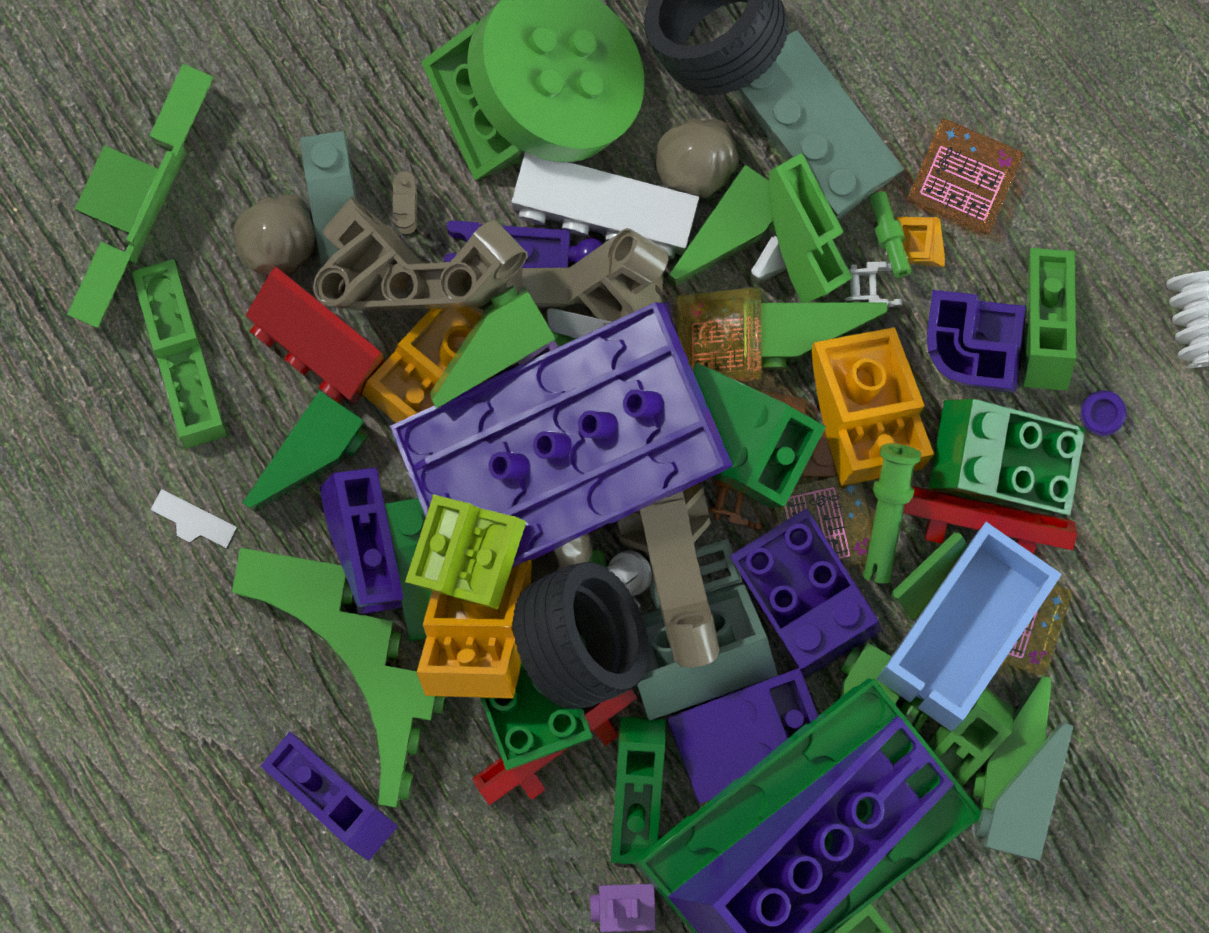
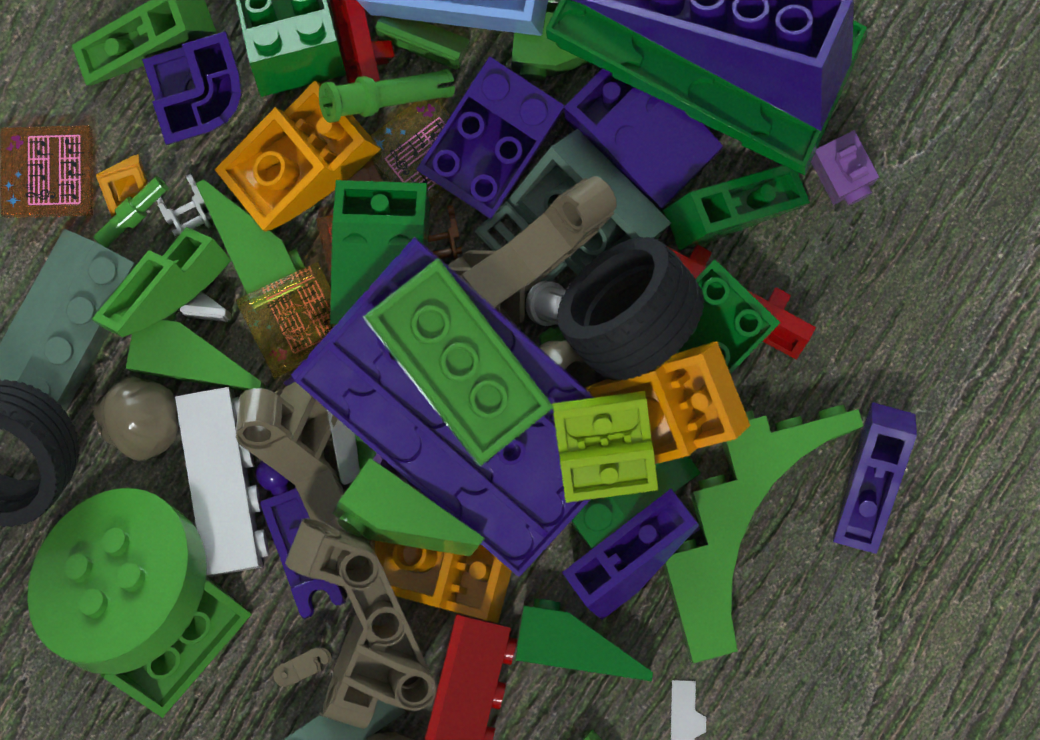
camera: 115 degrees left, 0 degrees up
(600, 451) = (458, 362): none -> bright green tile

